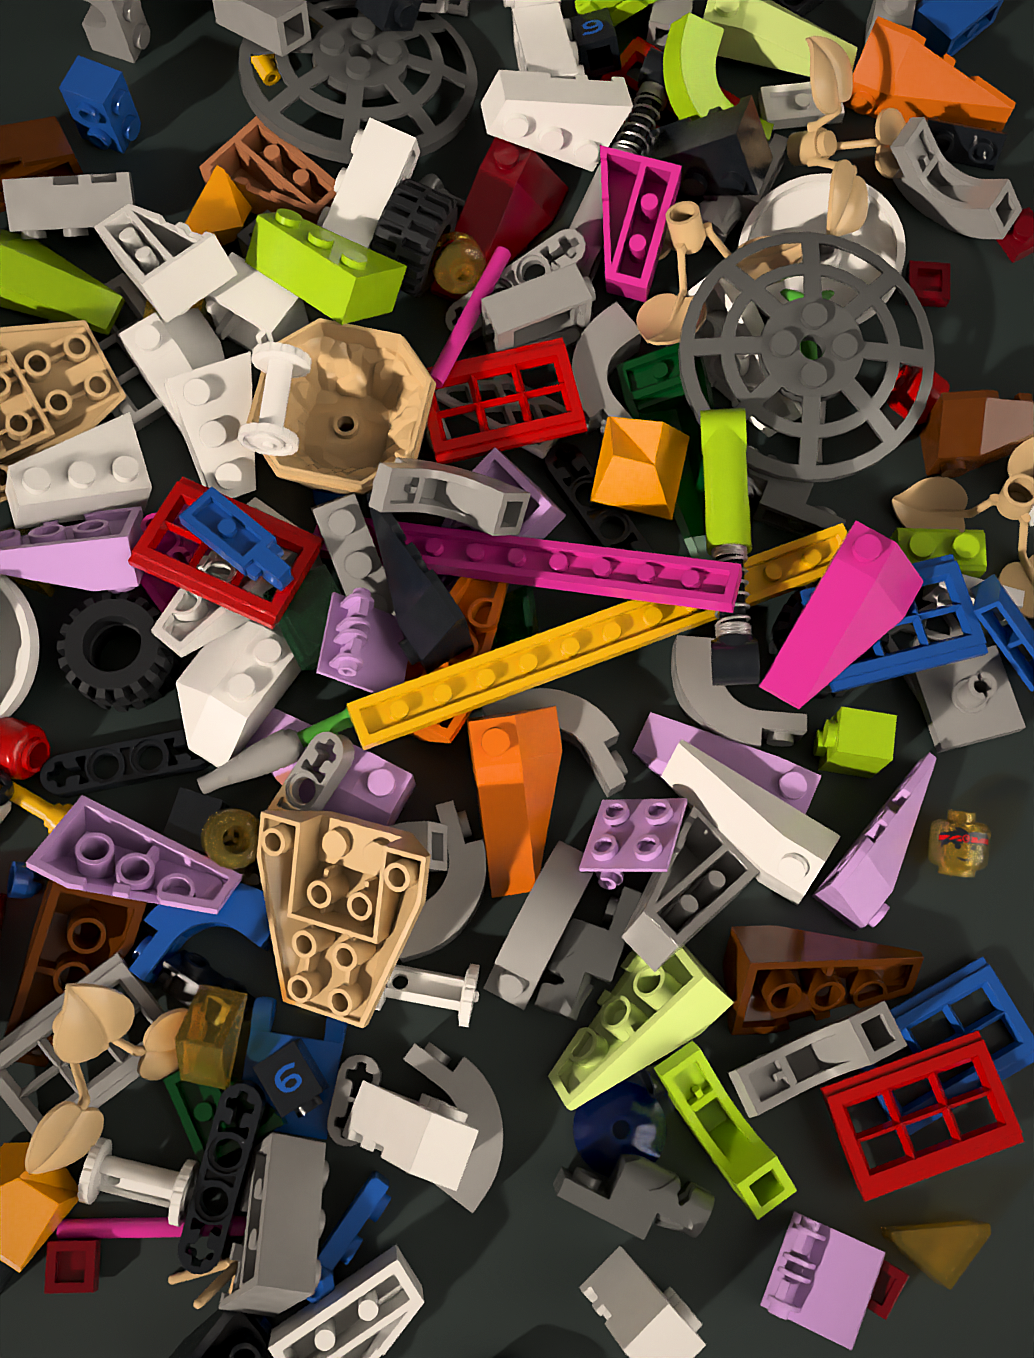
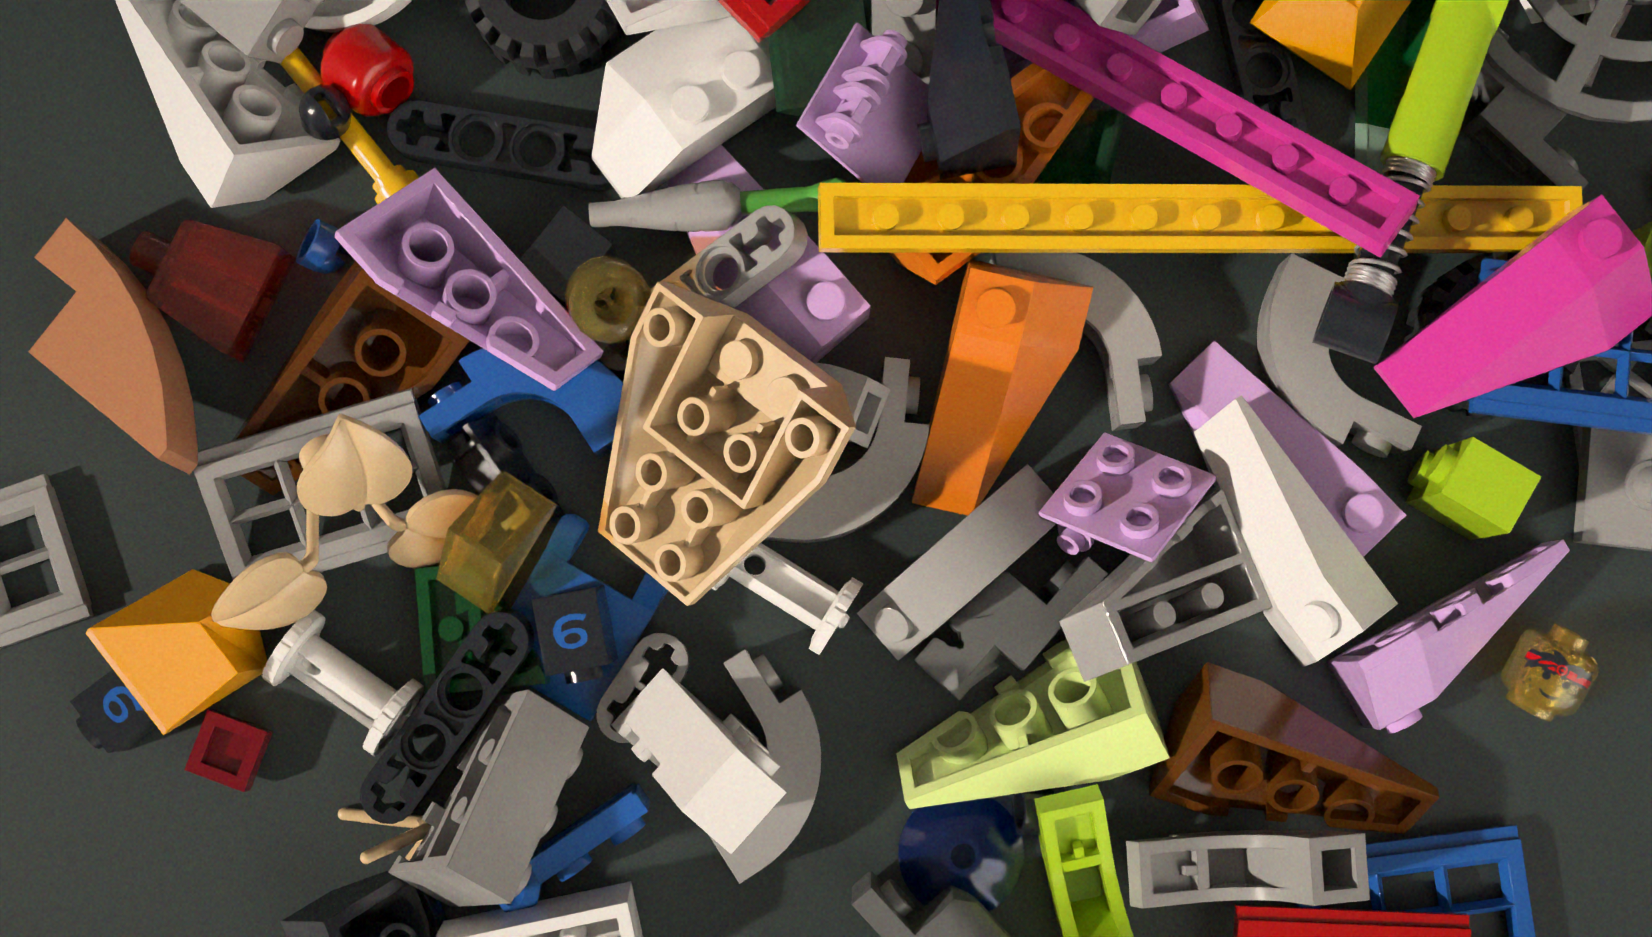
camera: 20 degrees right, 10 degrees up
(133, 1228) = (319, 735): dark pink bar -> none

